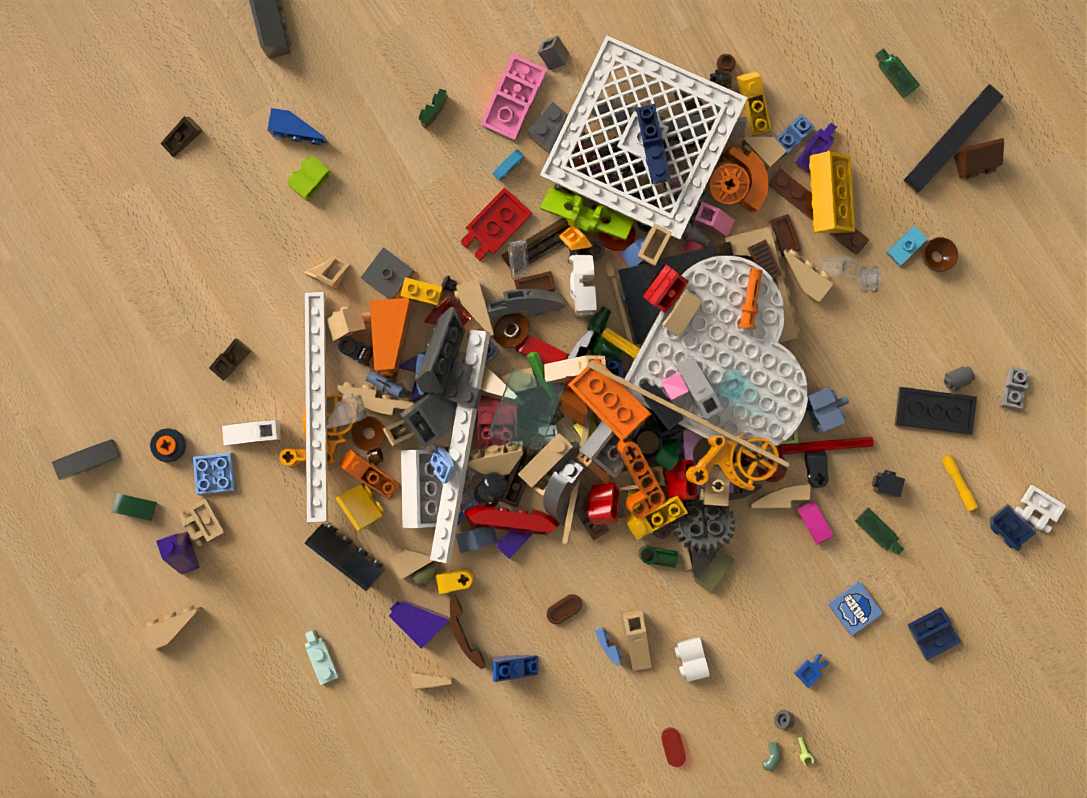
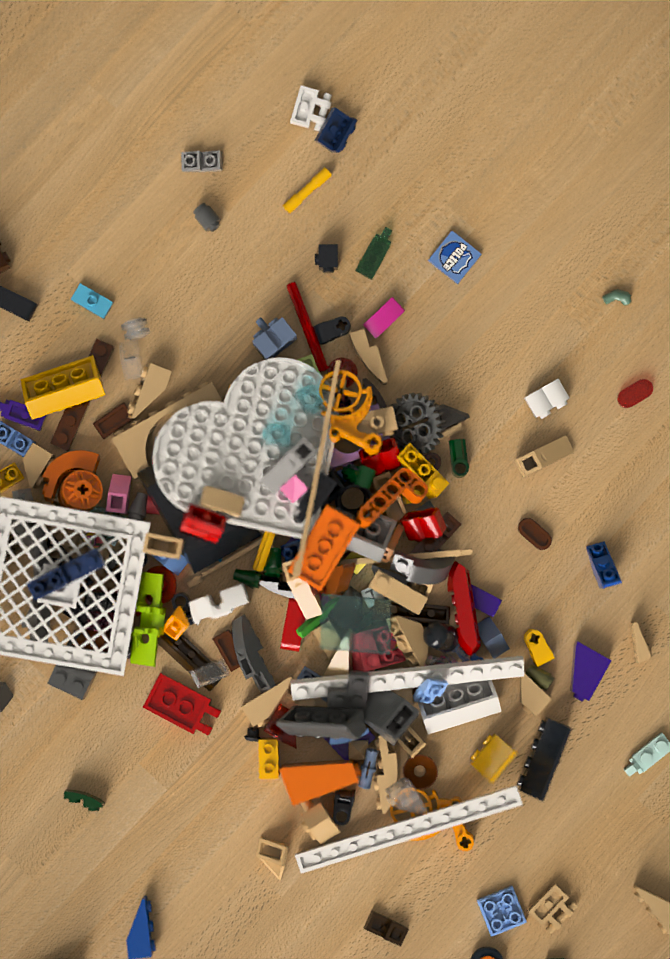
camera: 110 degrees left, 0 degrees up
(178, 552) = (587, 921): dark purple slope -> none
(251, 432) = (451, 885): white slope -> none
(309, 177) = (187, 902): lime brick -> none
(369, 474) = (459, 759): orange slope -> none
(375, 456) = (440, 758): reddish brown plate -> none
(387, 274) = (259, 798): dark grey plate -> none
(475, 654) = (603, 608): reddish brown slope -> none
(507, 325) = (281, 667): reddish brown dish -> none
(508, 165) = (119, 709): dark azure beam -> none
(514, 96) = (50, 723): bright pink slope -> none
(611, 650) = (561, 478): medium blue slope -> none
(715, 571) = (457, 399): olive slope -> none
(750, 308) = (201, 438): orange pin -> none
(764, 258) = (145, 435): tile -> none
(766, 426) = (309, 390): none -> clear light blue brick
(784, 720) = (579, 295): dark grey tile -> none
(805, 754) = (605, 267): yellowish green hand -> none
(808, 671) = (527, 285): blue plate -> none
(933, 633) = (457, 176): dark blue slope -> none
(935, 410) = (244, 231): black tile -> none
(946, 248) = (86, 260): reddish brown piece -> none

